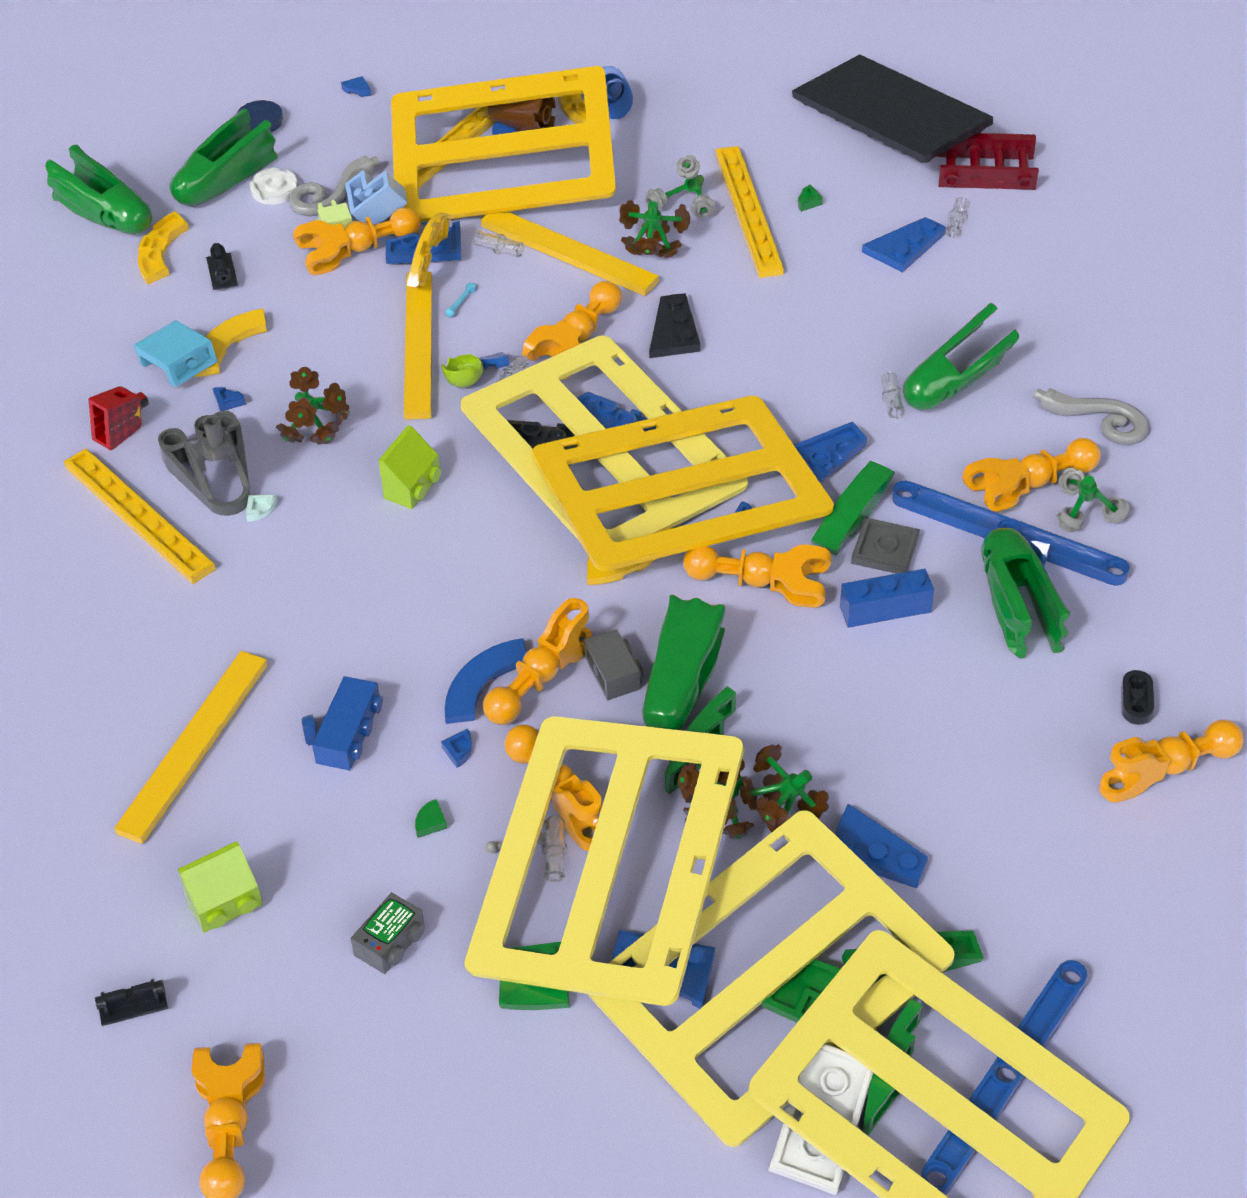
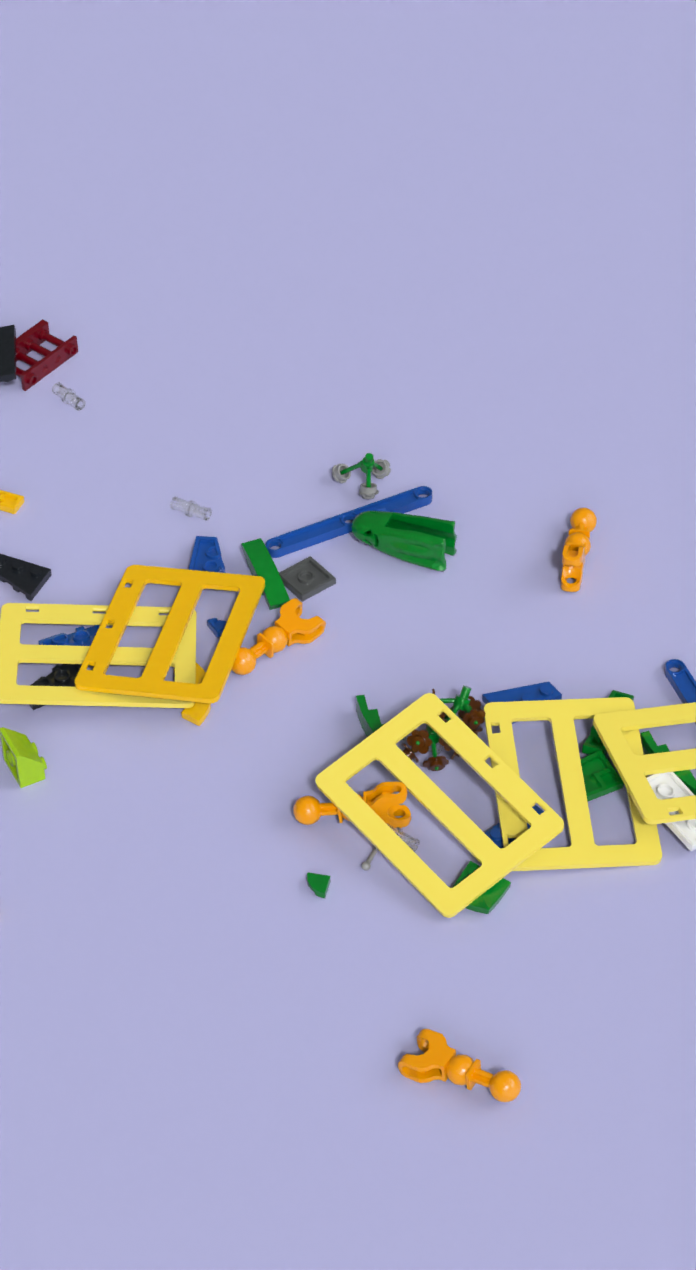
camera: 55 degrees left, 5 degrees down
(131, 1002) = (331, 1084): black hinge -> none
(190, 747) = (148, 974): yellow tile -> none
(220, 887) = (290, 1000): lime slope -> none
(309, 729) = (192, 907): blue tile -> none
(347, 723) = (208, 886): blue brick -> none
(388, 933) = (391, 938): dark grey brick -> none
(458, 747) = (274, 846): blue tile -> none
(472, 678) = (226, 812): blue tile -> none
(556, 649) = (254, 770): light orange piece -> none
(613, 664) = (282, 742): dark grey brick -> none
(683, 661) = (318, 706): green piece -> none
(886, 597) = (351, 597): blue brick -> none
(905, 245) = (63, 432): blue wing -> none
(937, 377) = (201, 461): green piece -> none
(1015, 477) = (315, 492): light orange piece -> none
(1069, 406) = (279, 441): light grey plant -> none
(1137, 703) = (521, 538): black plate -> none

